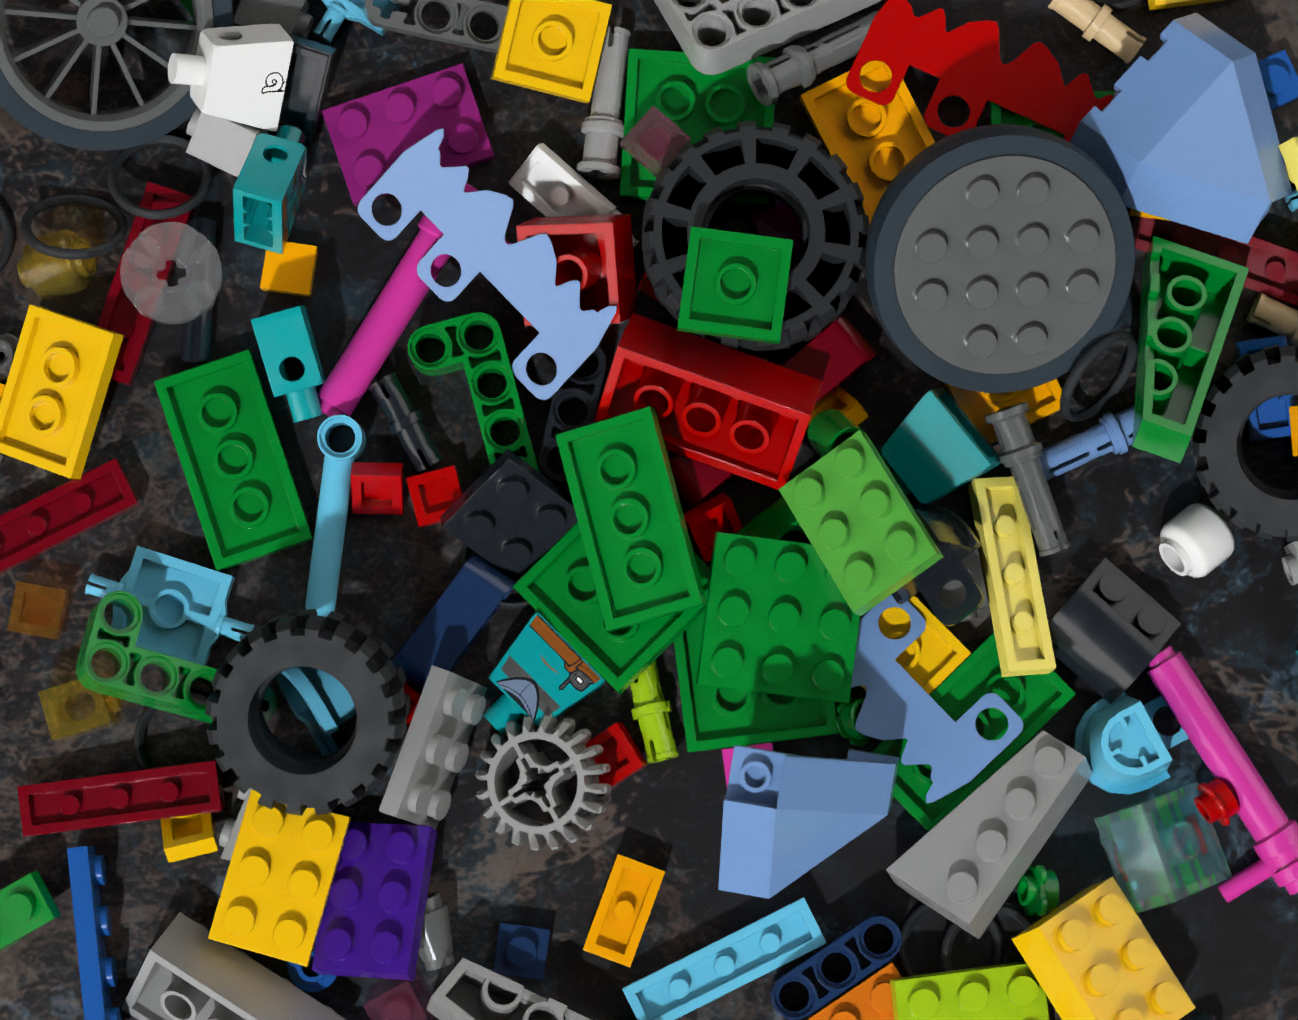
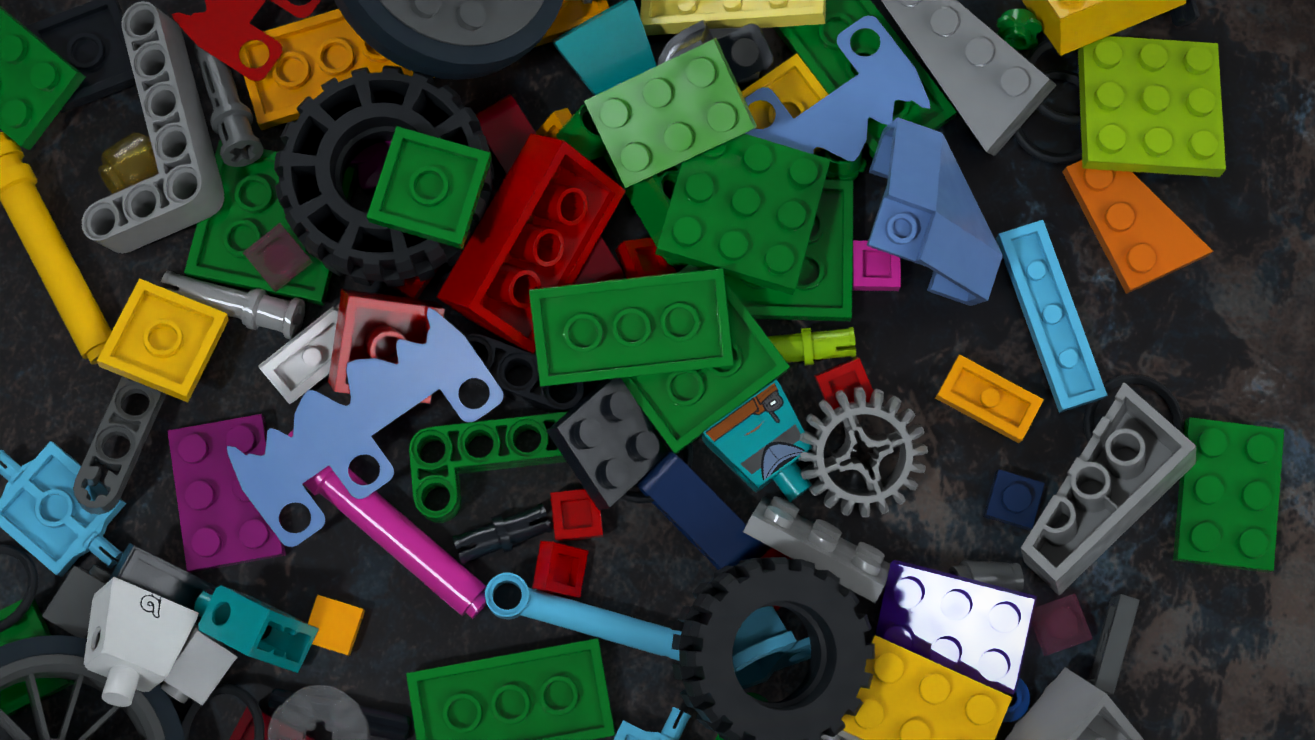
camera: 80 degrees left, 5 degrees down
(286, 336) = (400, 633): teal torso -> none
(860, 961) = (1067, 194): dark blue beam -> none

